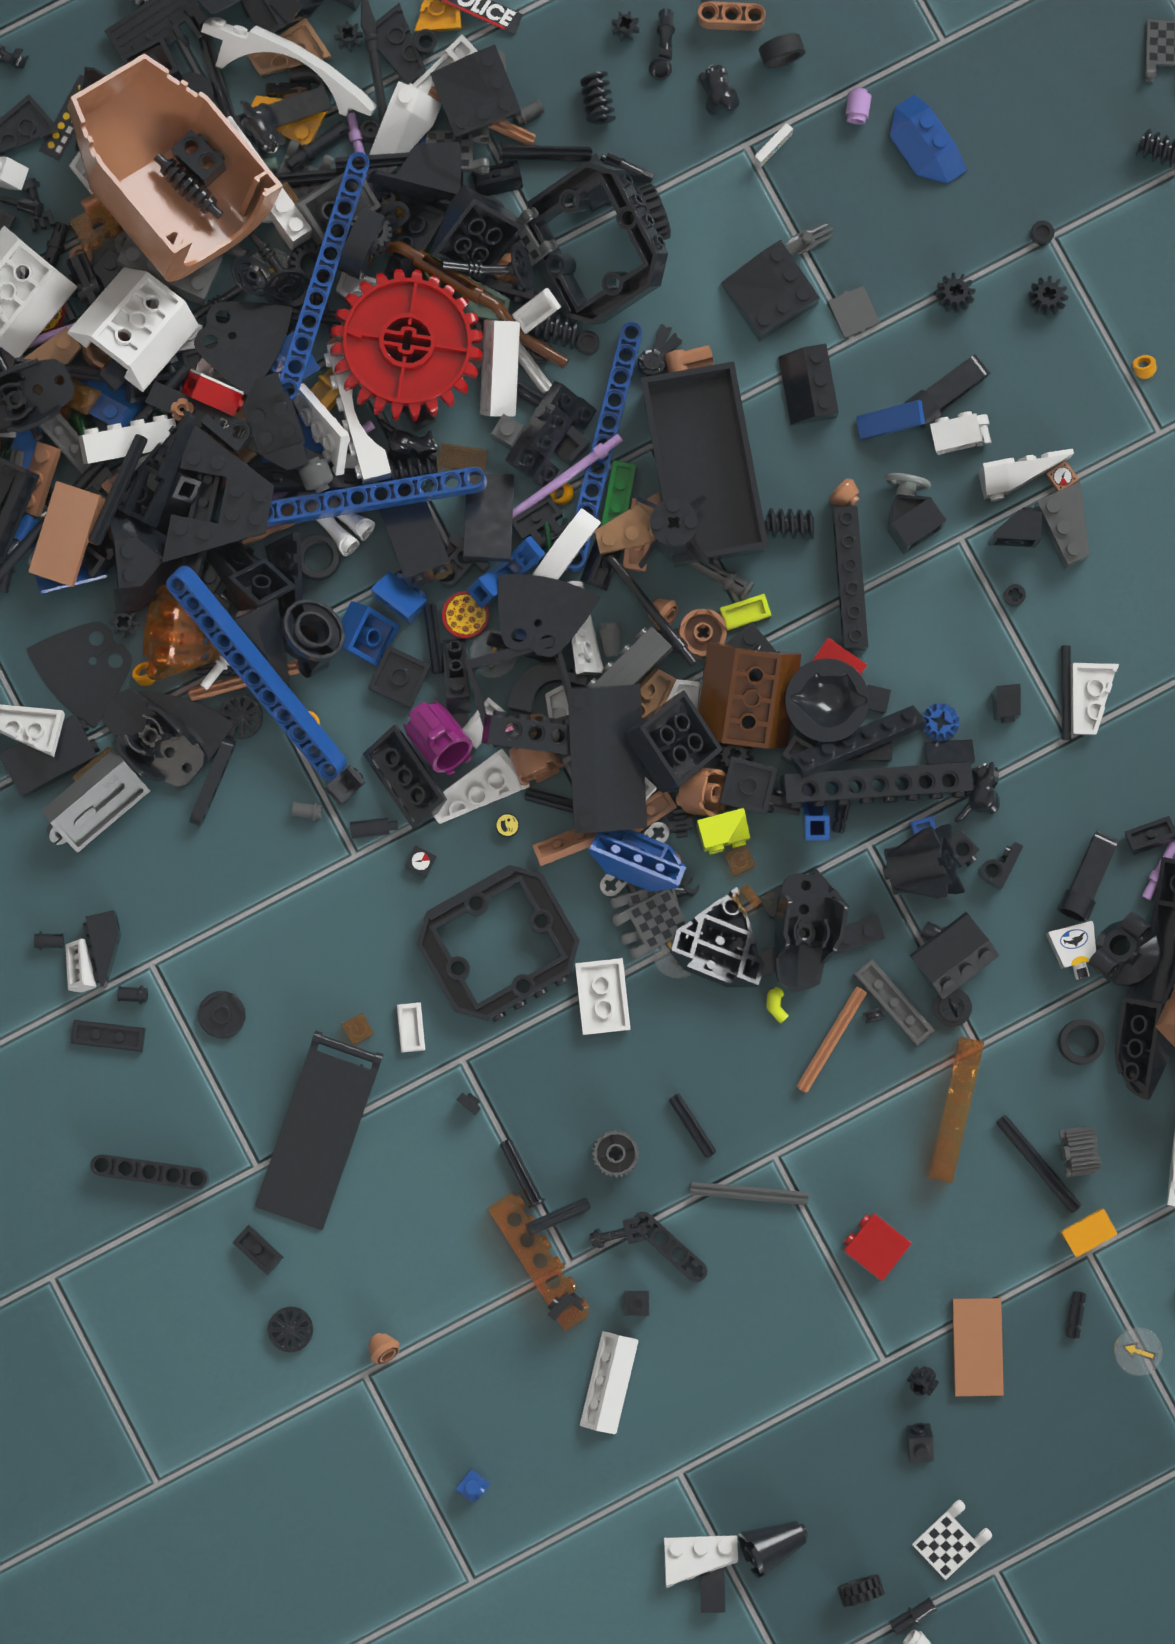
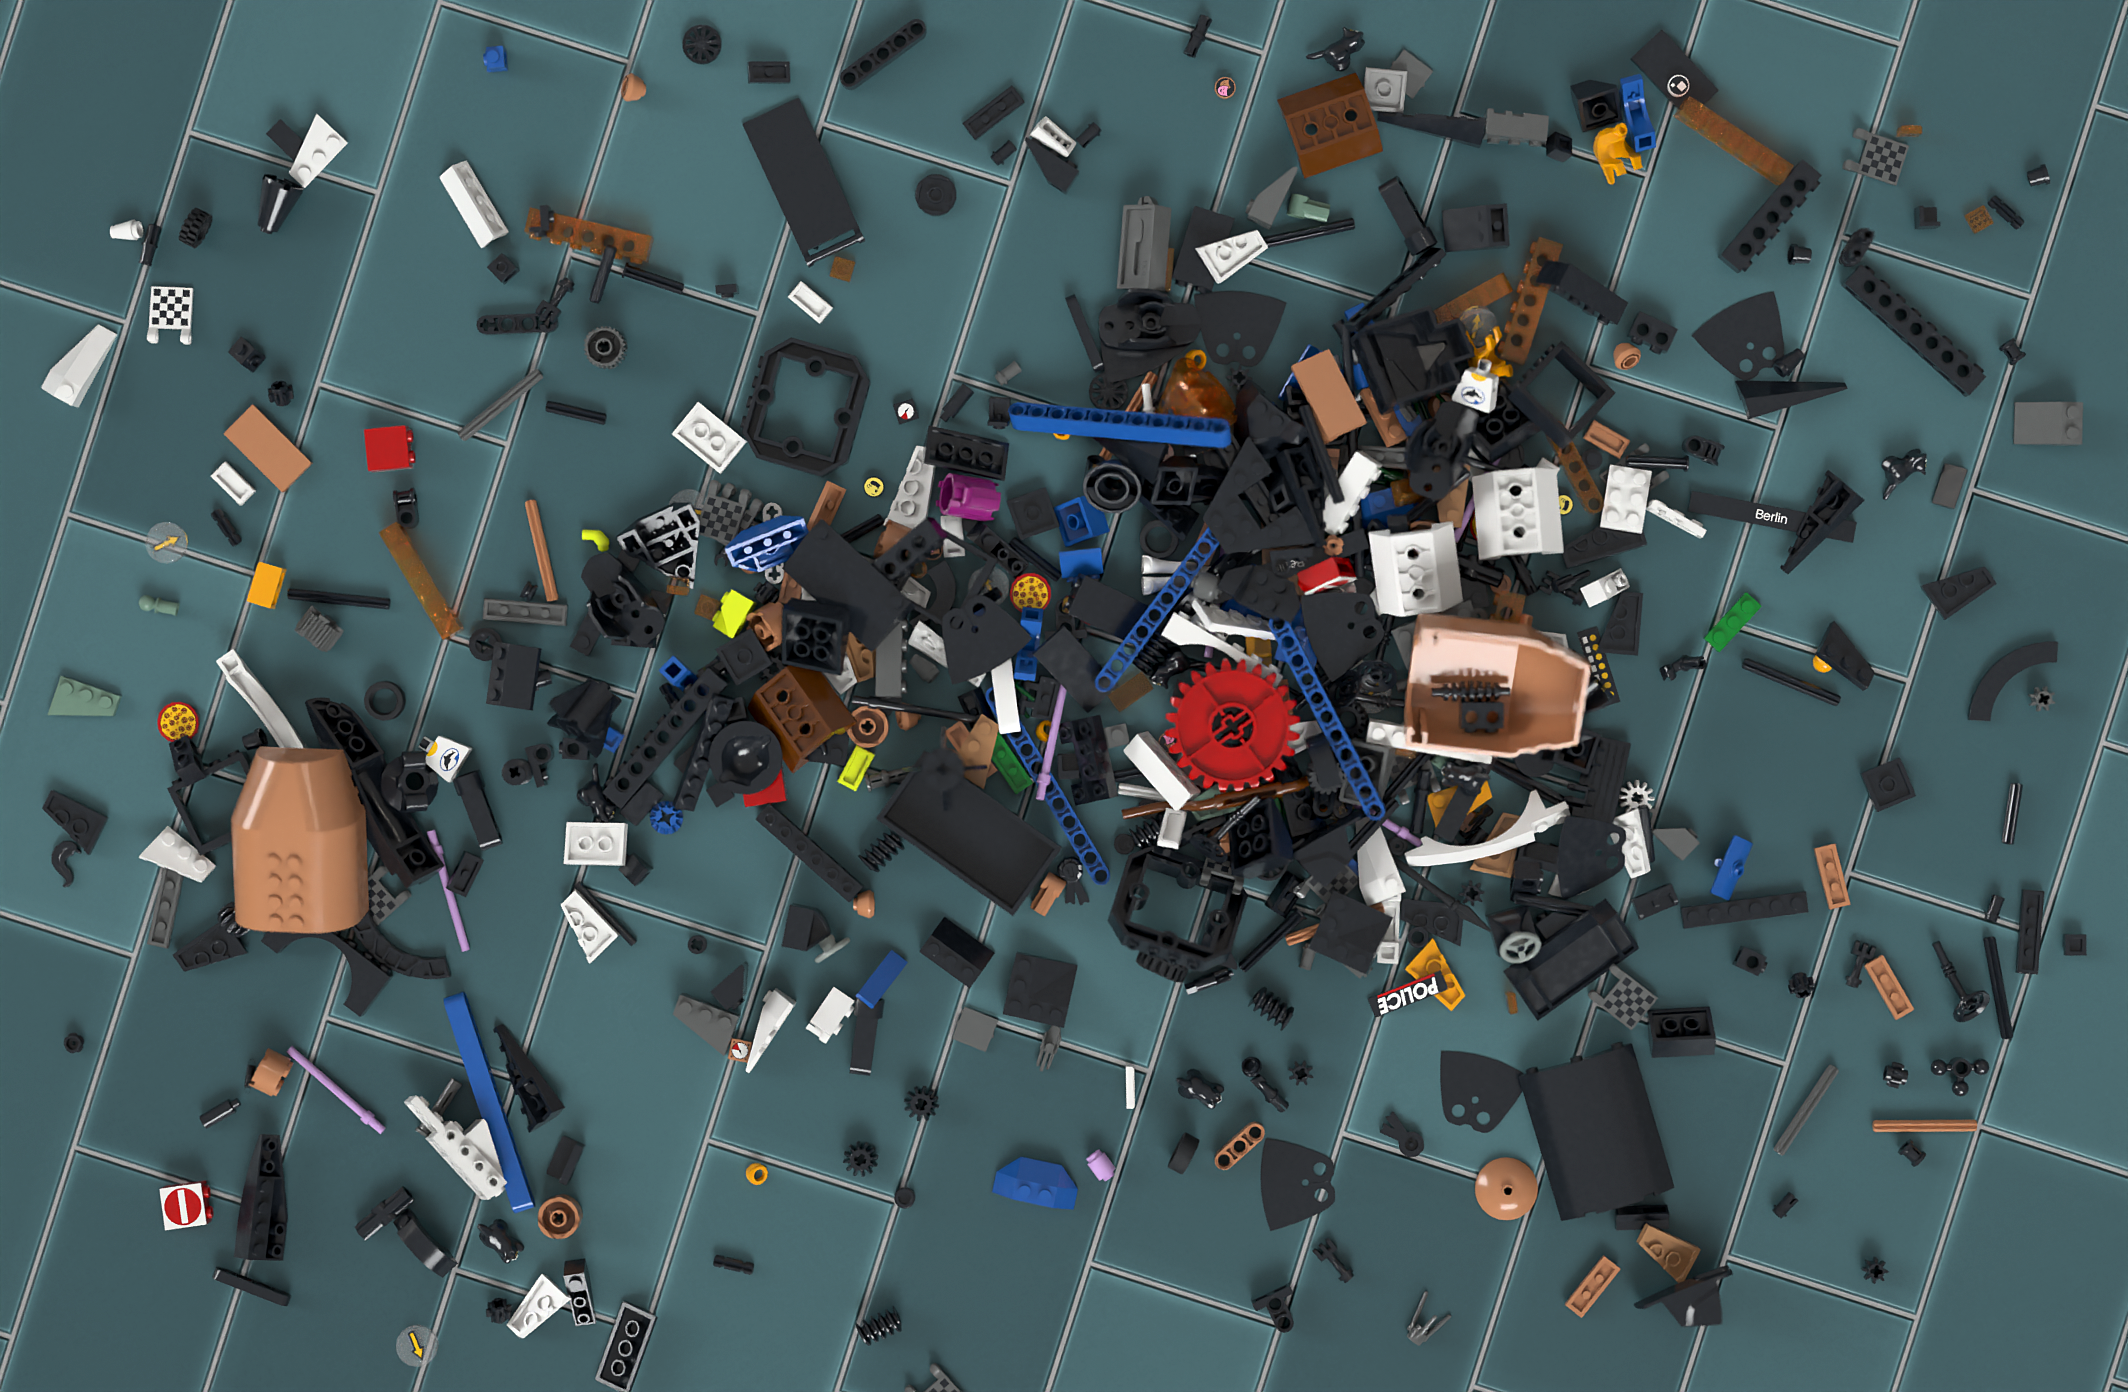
camera: 140 degrees right, 5 degrees up
(474, 389) = (1166, 742): none -> tile
(908, 1185) = (406, 506): none -> black piece
(1019, 754) = (595, 843): none -> white plate
(1029, 865) = (509, 773): none -> black piece
(1035, 1346) = (233, 483): none -> white tile
(1073, 1571) = (76, 370): none -> white wedge

